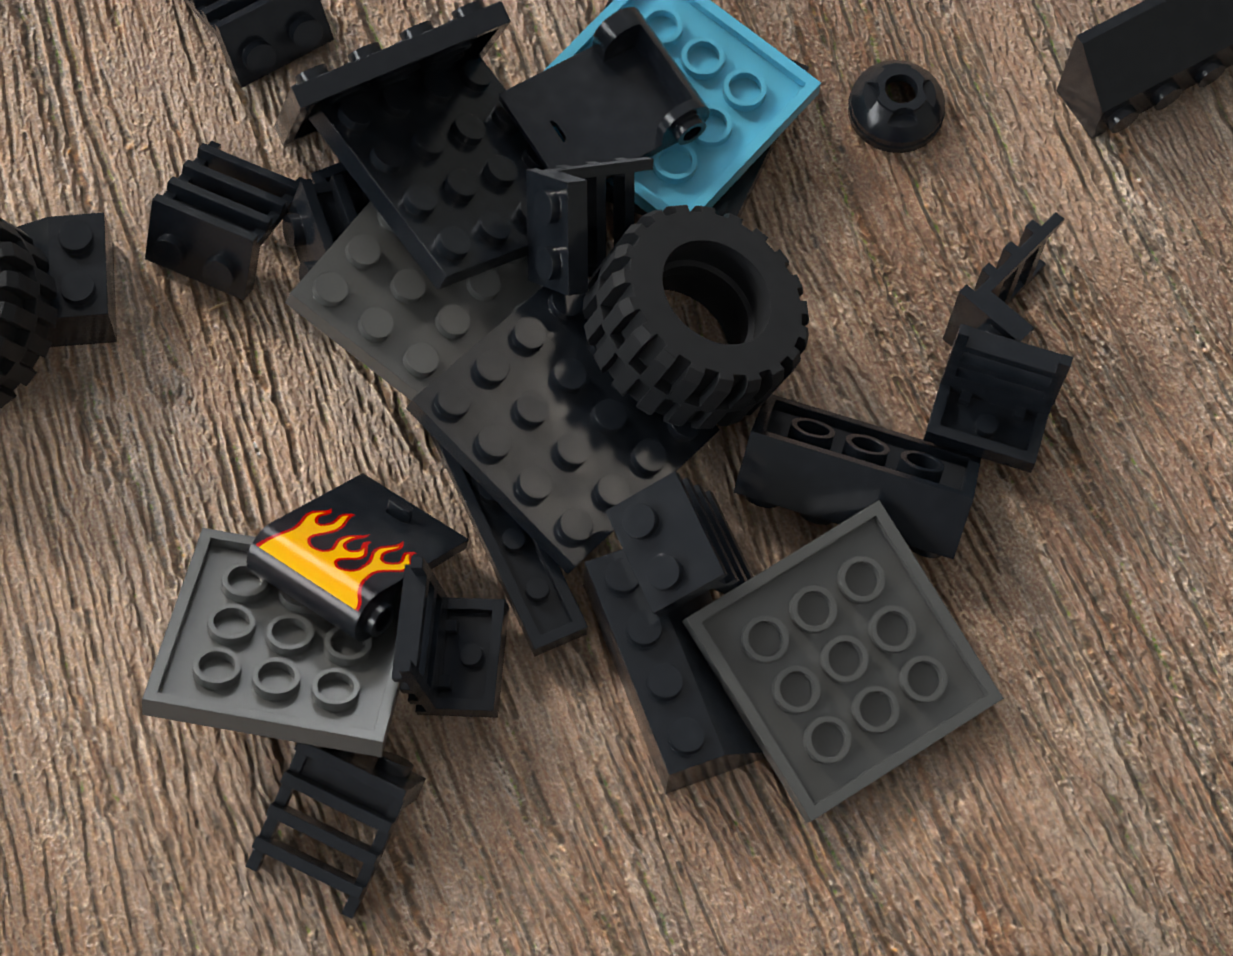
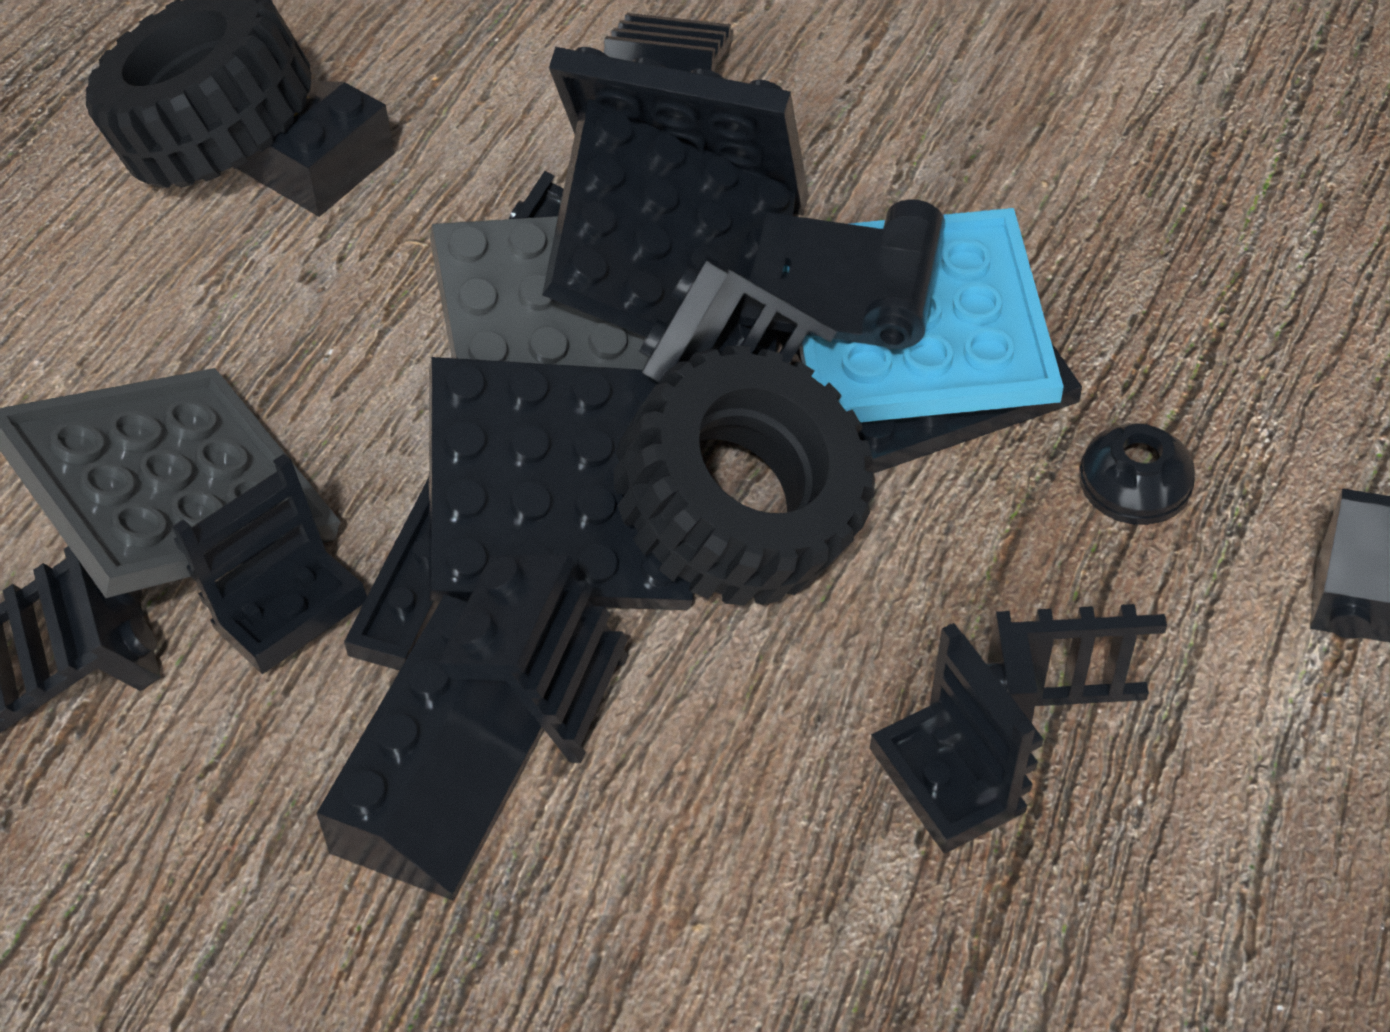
camera: 50 degrees right, 15 degrees down
(217, 219) = (451, 175): black plate -> none
(350, 553) = (250, 424): black door -> none
(840, 465) = (771, 727): black slope -> none
(842, 661) = (580, 859): dark grey plate -> none

